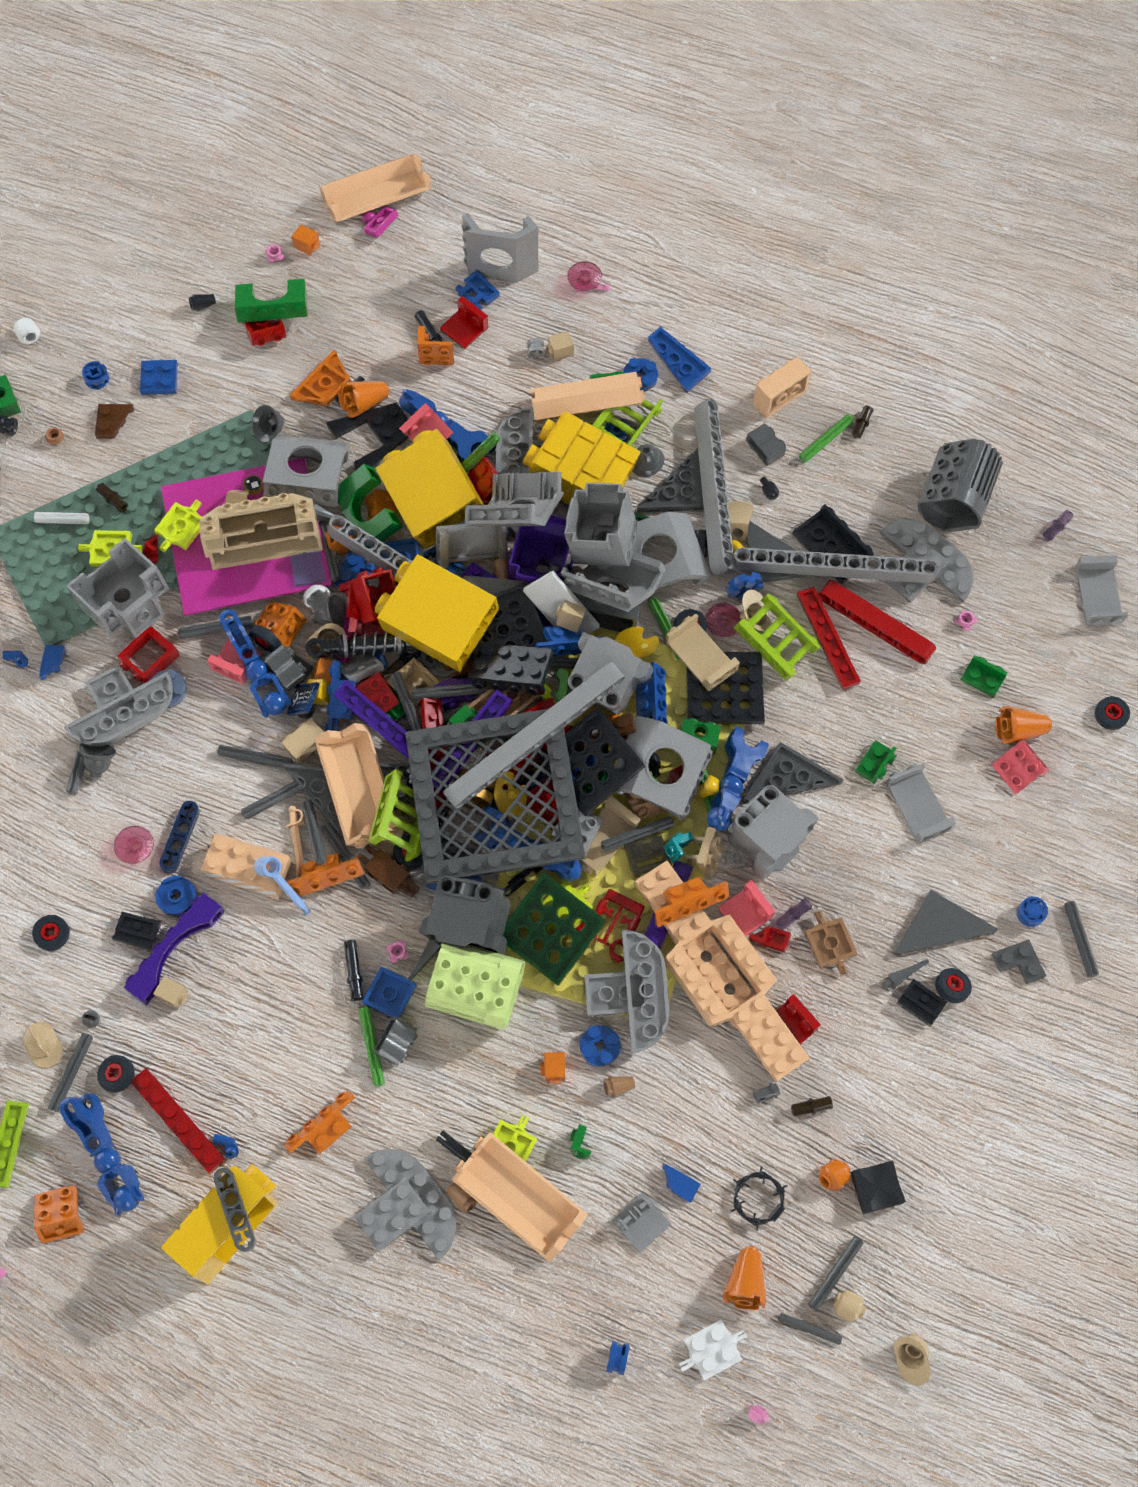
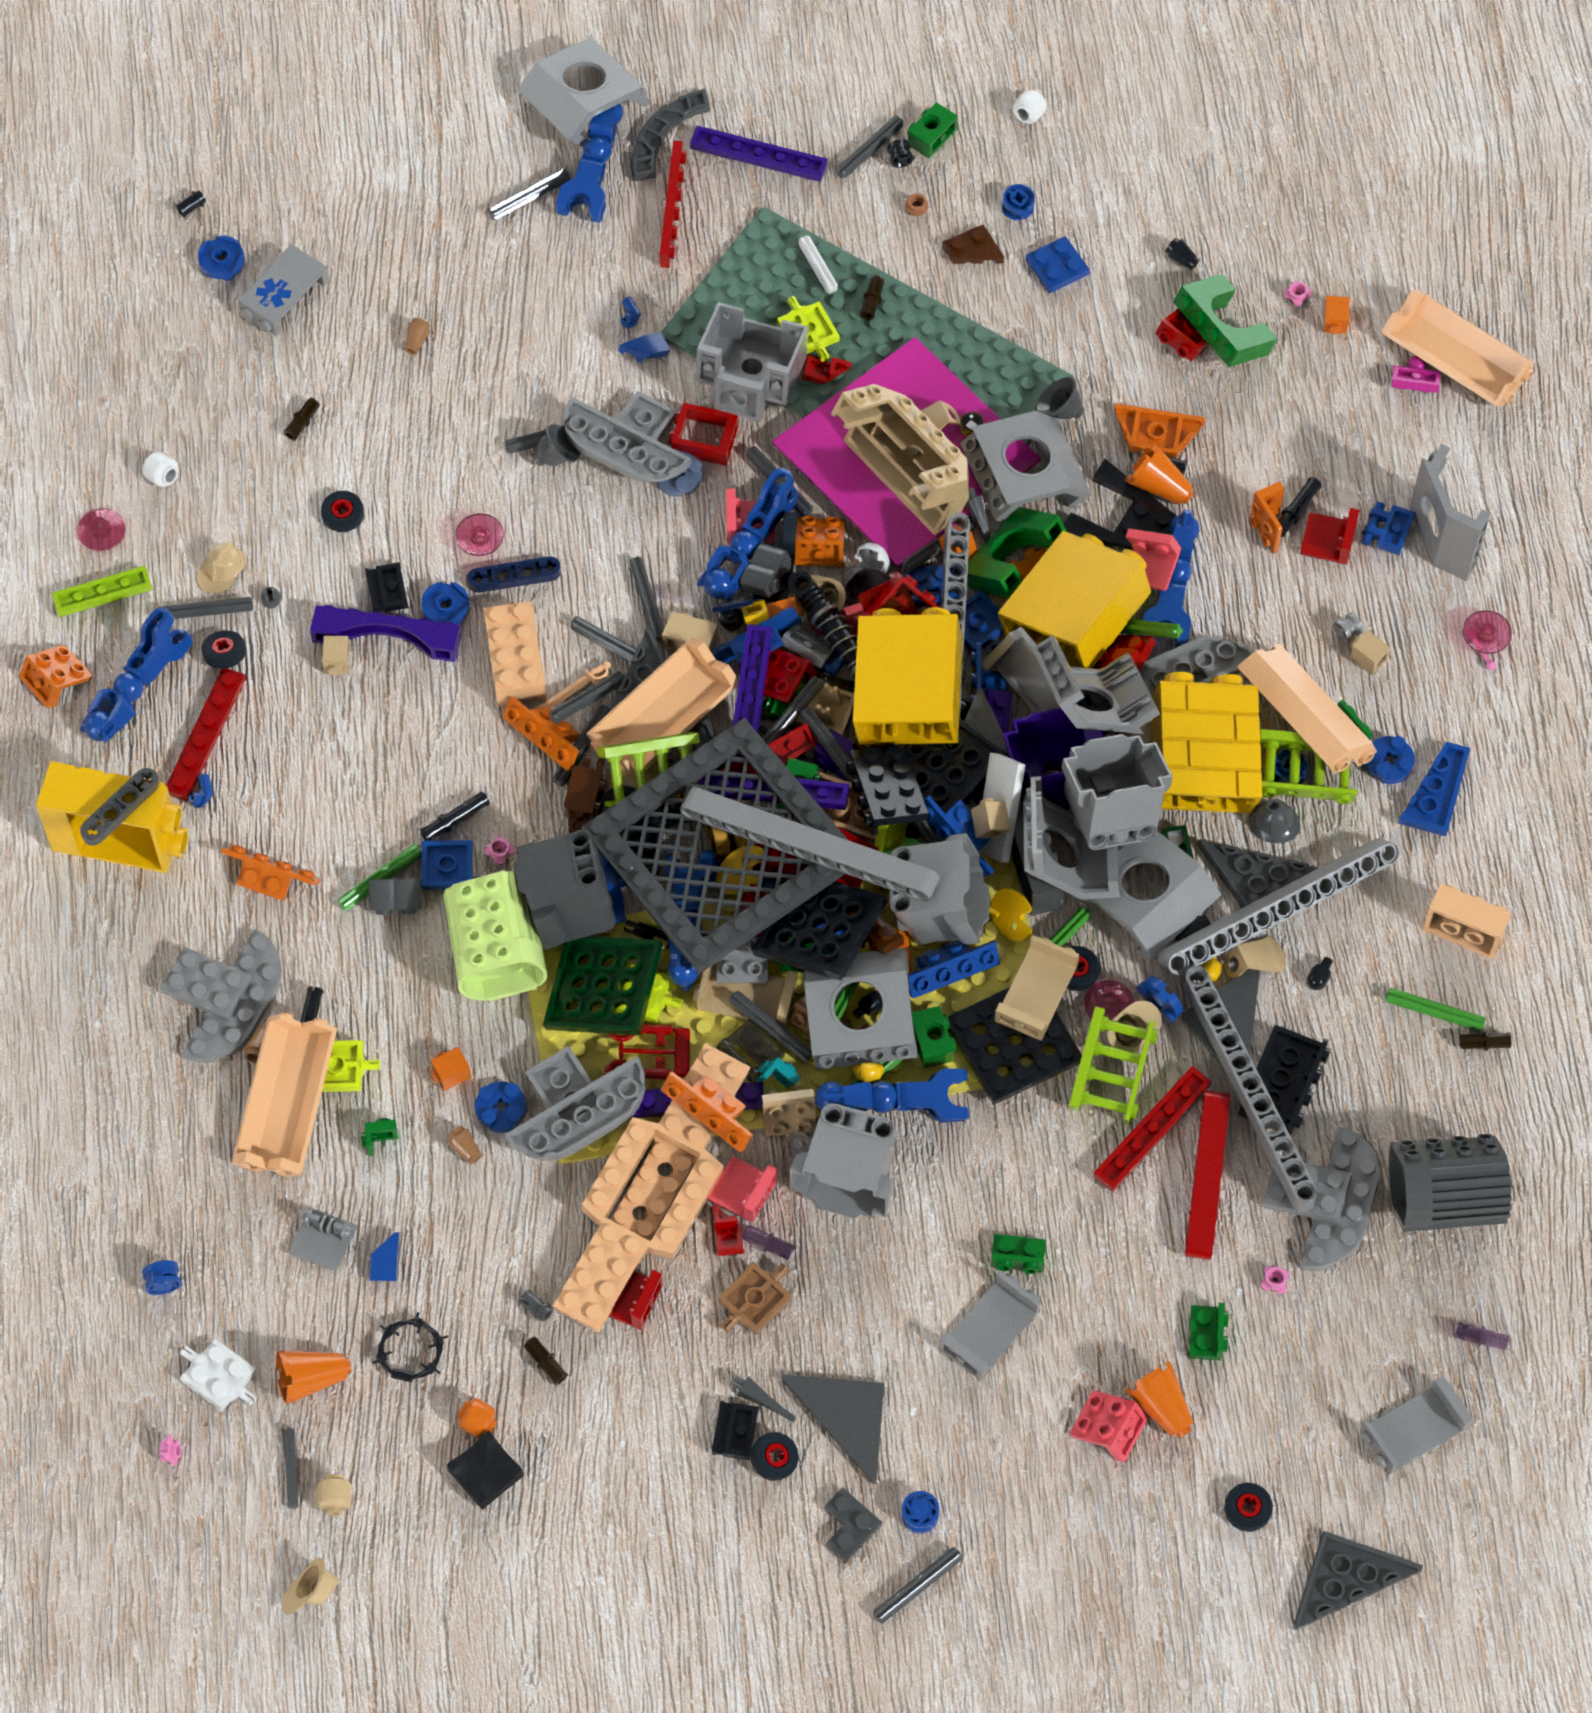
camera: 65 degrees right, 5 degrees down
(179, 526) = (876, 371): neon yellow plate -> none
(273, 872) = (512, 677): light blue piece -> none
(307, 568) = (901, 531): clear light blue piece -> none
(766, 444) = (1379, 942): dark grey brick -> none
(791, 774) = (946, 1162): dark grey tile -> none
(835, 1273) = (366, 1469): dark grey axle -> none

